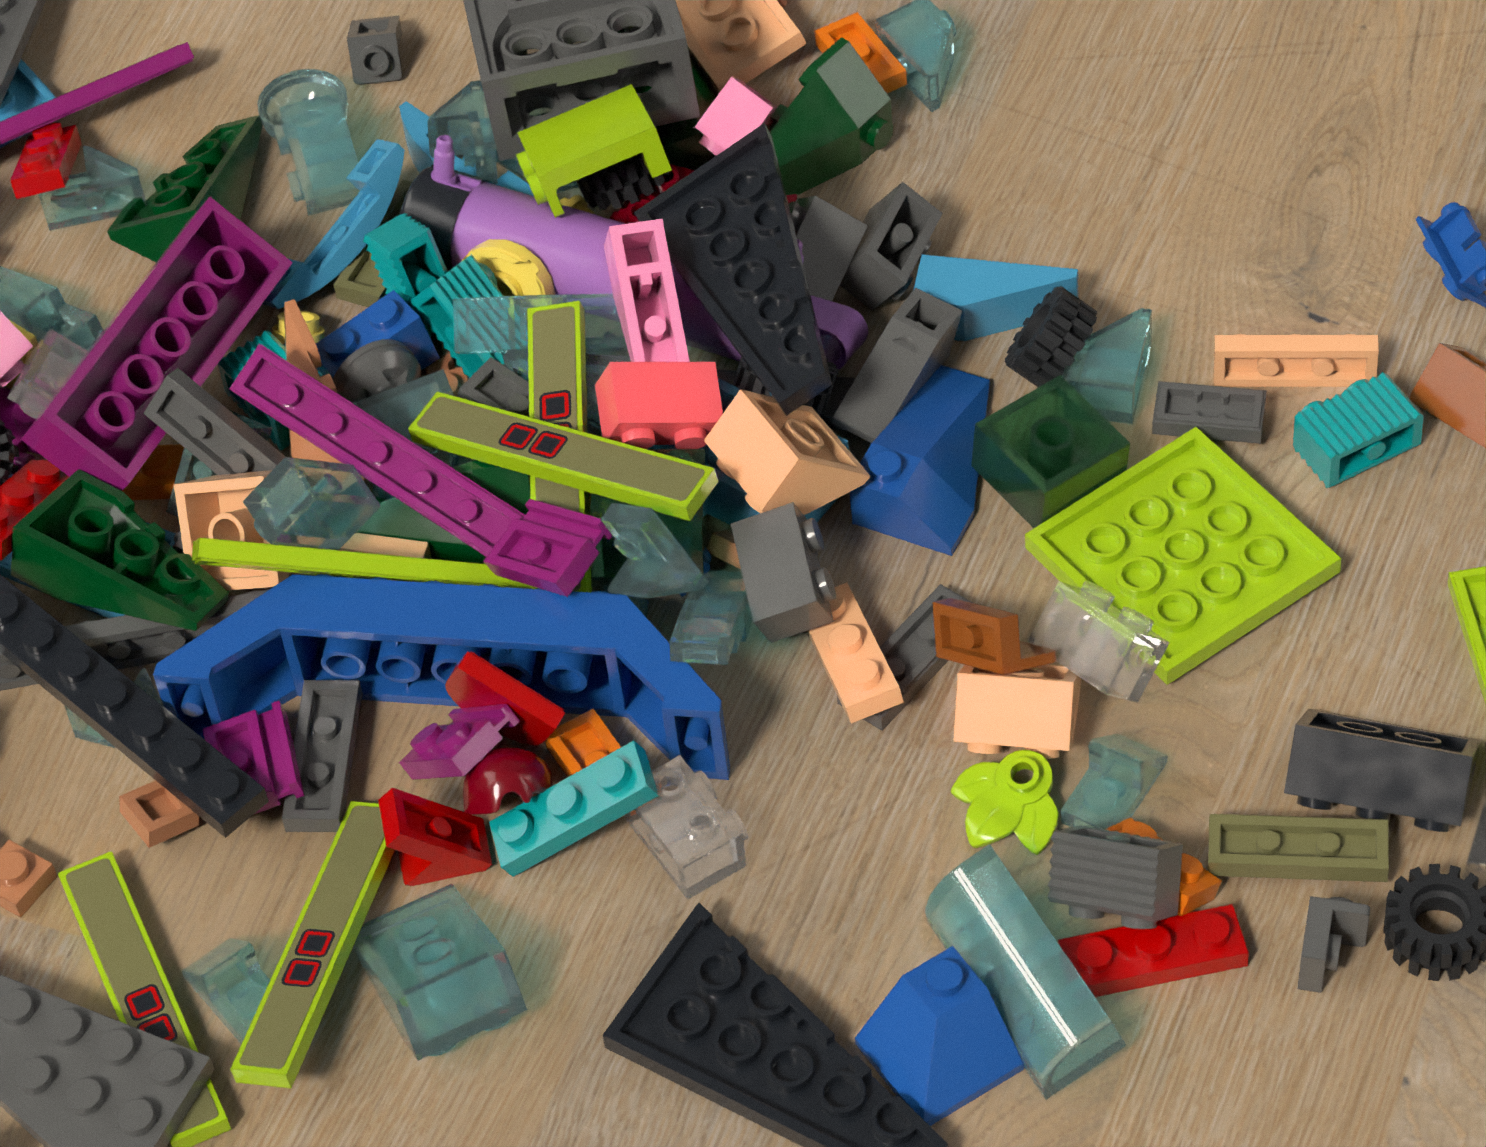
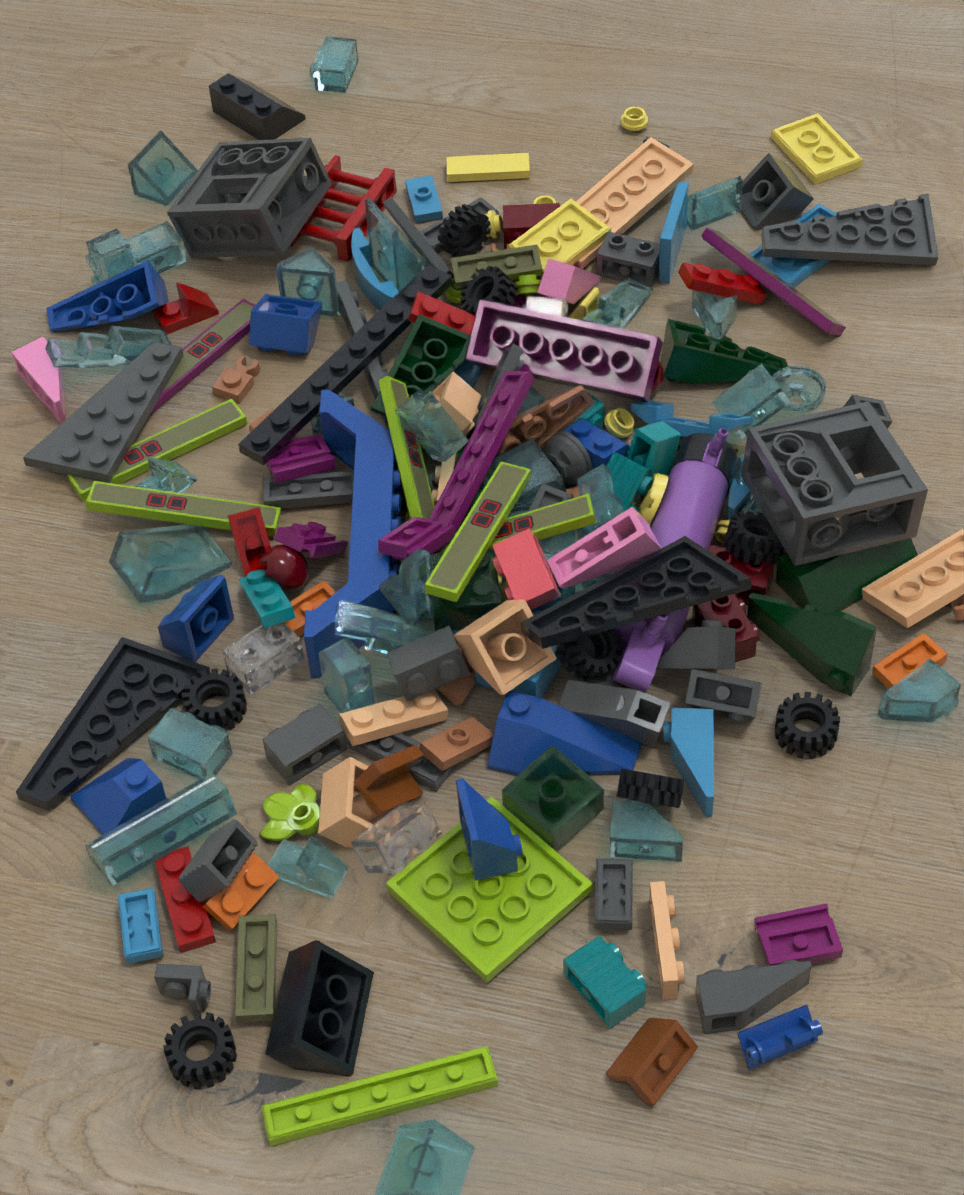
camera: 80 degrees right, 0 degrees up
(482, 684) = (330, 549): red tile -> none
(587, 142) = (739, 504): lime panel -> none
(590, 911) = (197, 619): none -> blue slope
(733, 115) = (805, 585): bright pink slope -> none
(760, 874) = (215, 685): none -> black tyre
(779, 691) = (346, 676): none -> clear light blue brick
(856, 932) = (190, 744): none -> clear light blue brick
(881, 773) = (304, 744): none -> dark grey brick
(914, 572) = (457, 743): none -> nougat plate
(951, 155) = (809, 709): none -> black tyre
(1119, 525) = (486, 835): none -> blue slope
(1204, 1007) = (140, 926): none -> dark azure plate
(1302, 224) = (798, 936): none -> magenta plate
(1393, 282) = (741, 996): none -> dark grey slope

